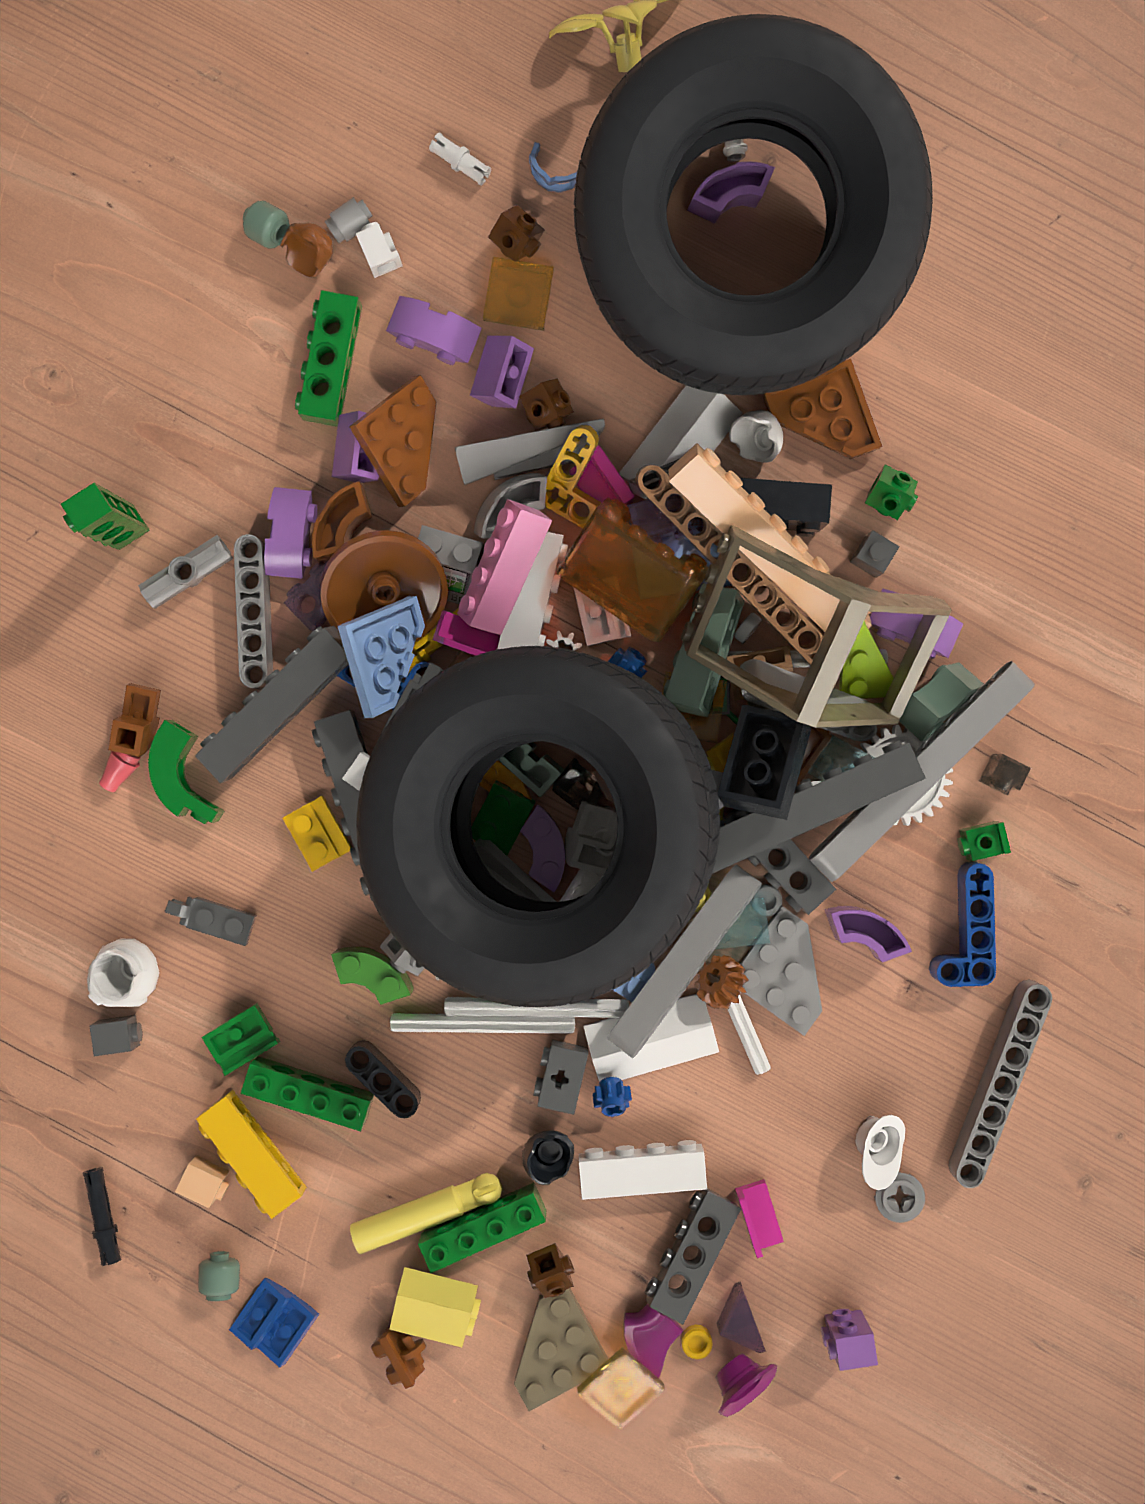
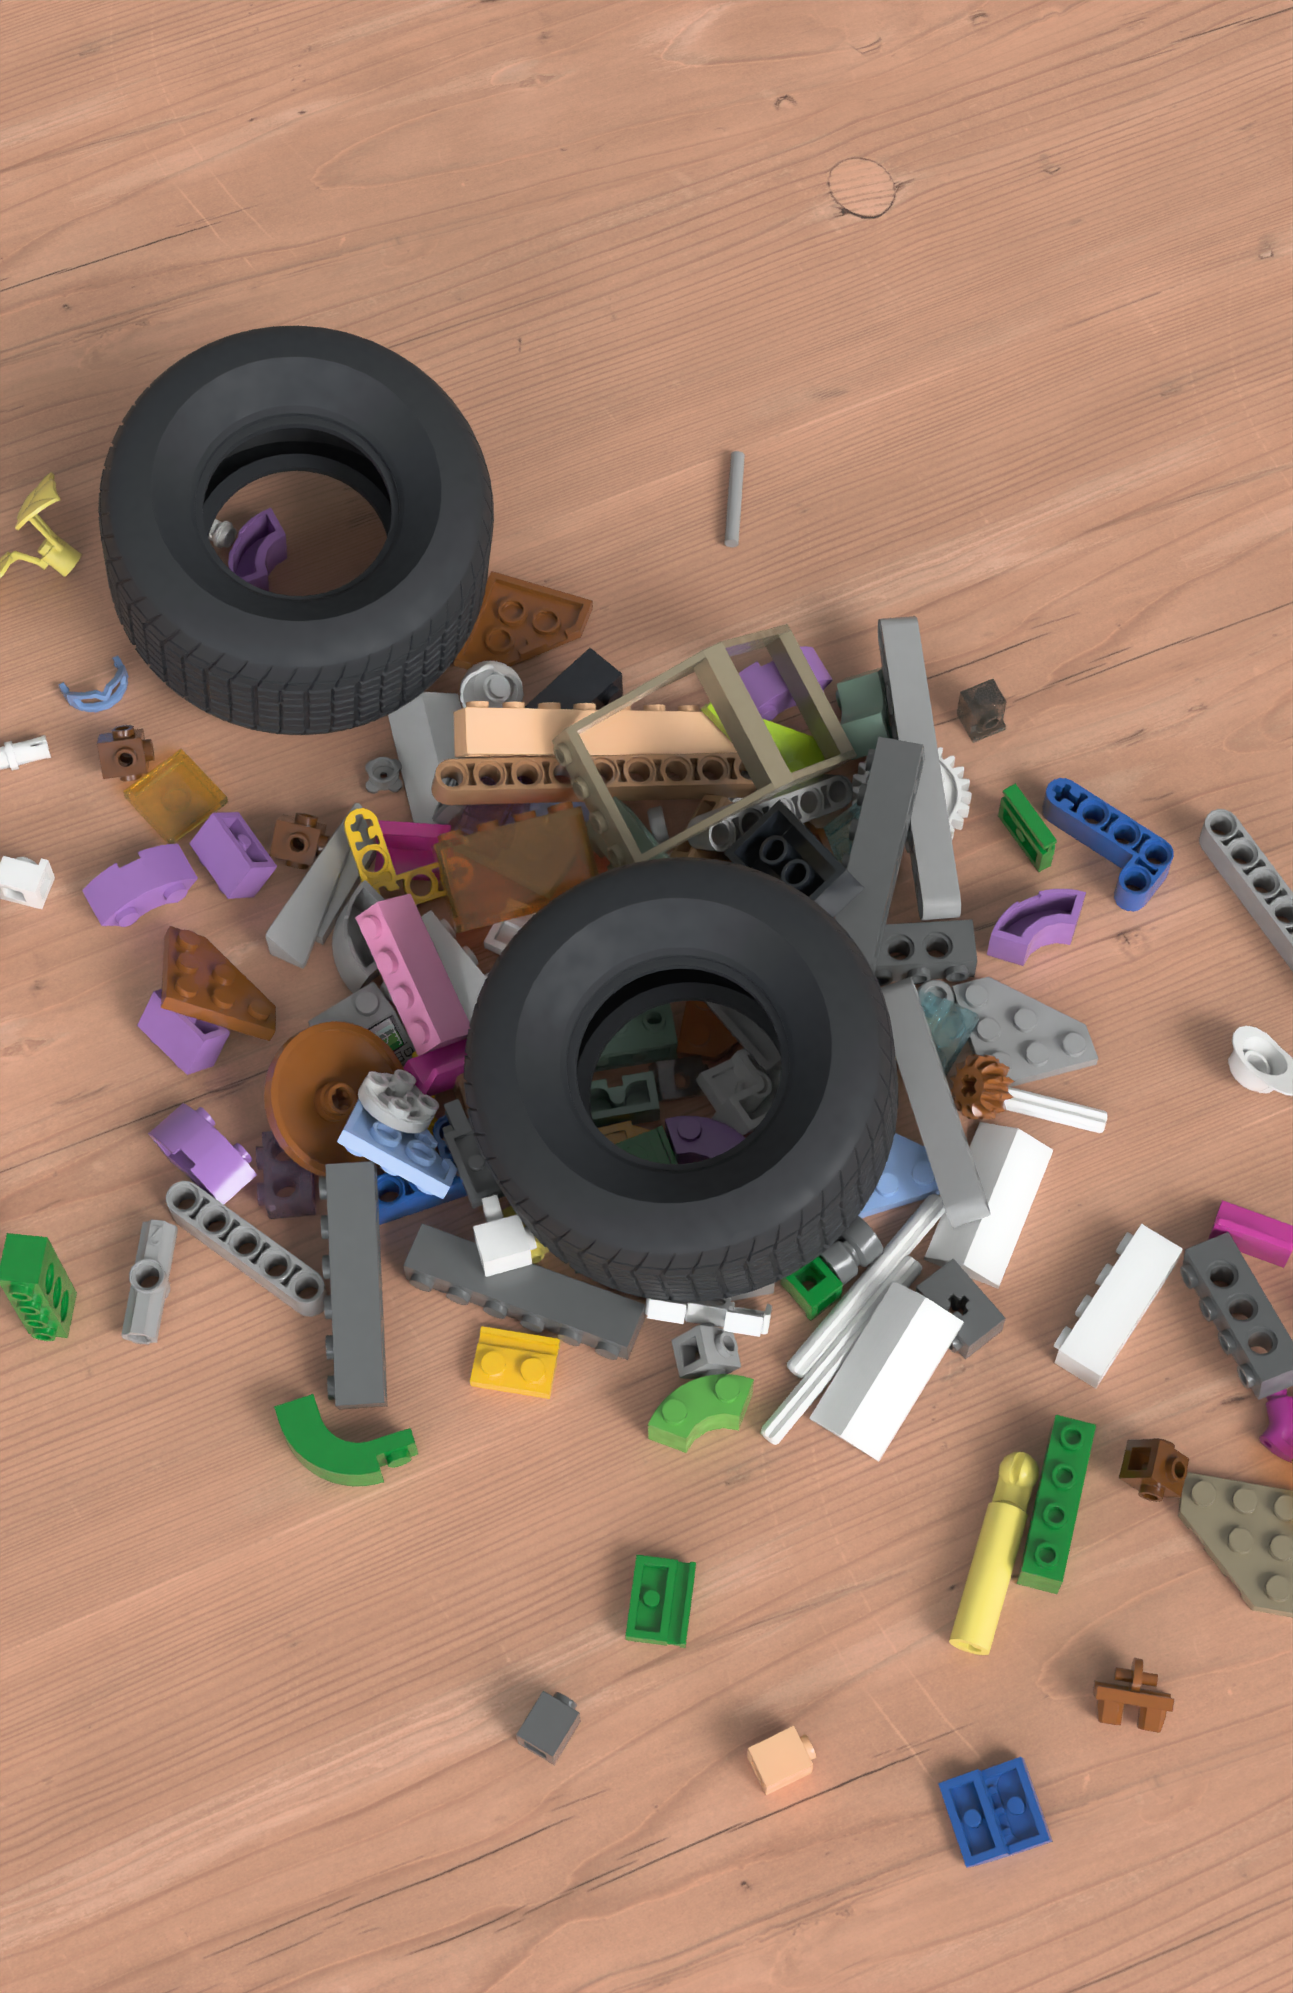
camera: 55 degrees left, 25 degrees down
(102, 1218) = (731, 1905): black pin -> none
(113, 983) = (499, 1642): white helmet -> none
(118, 769) = (279, 1501): coral cone -> none
(138, 724) = (248, 1437): dark orange brick -> none
(213, 919) = (513, 1533): dark grey hinge -> none
(219, 1276) = (897, 1823): sand green head -> none
(251, 1154) = (791, 1685): yellow brick -> none
(307, 1093) = (773, 1571): green brick -> none
(329, 309) = (50, 951): green brick -> none
(339, 520) = (231, 1088): dark orange brick -> none
(386, 1094) = (804, 1499): black beam -> none
(409, 630) = (397, 1101): none -> white tile
(435, 1307) = (1104, 1611): light yellow brick -> none
(485, 1064) = (886, 1370): none -> white slope
(547, 1156) = (1029, 1382): black hair -> none
(612, 1096) = (1017, 1275): blue gear -> none
(651, 416) = (381, 766): none -> light grey plate
(874, 554) = (688, 686): dark grey brick -> none
(892, 492) = (641, 620): green brick -> none
(936, 871) = (1027, 828): none -> green plate
(996, 838) = (1034, 769): green brick -> none
(1044, 474) = (734, 499): none -> light grey bar

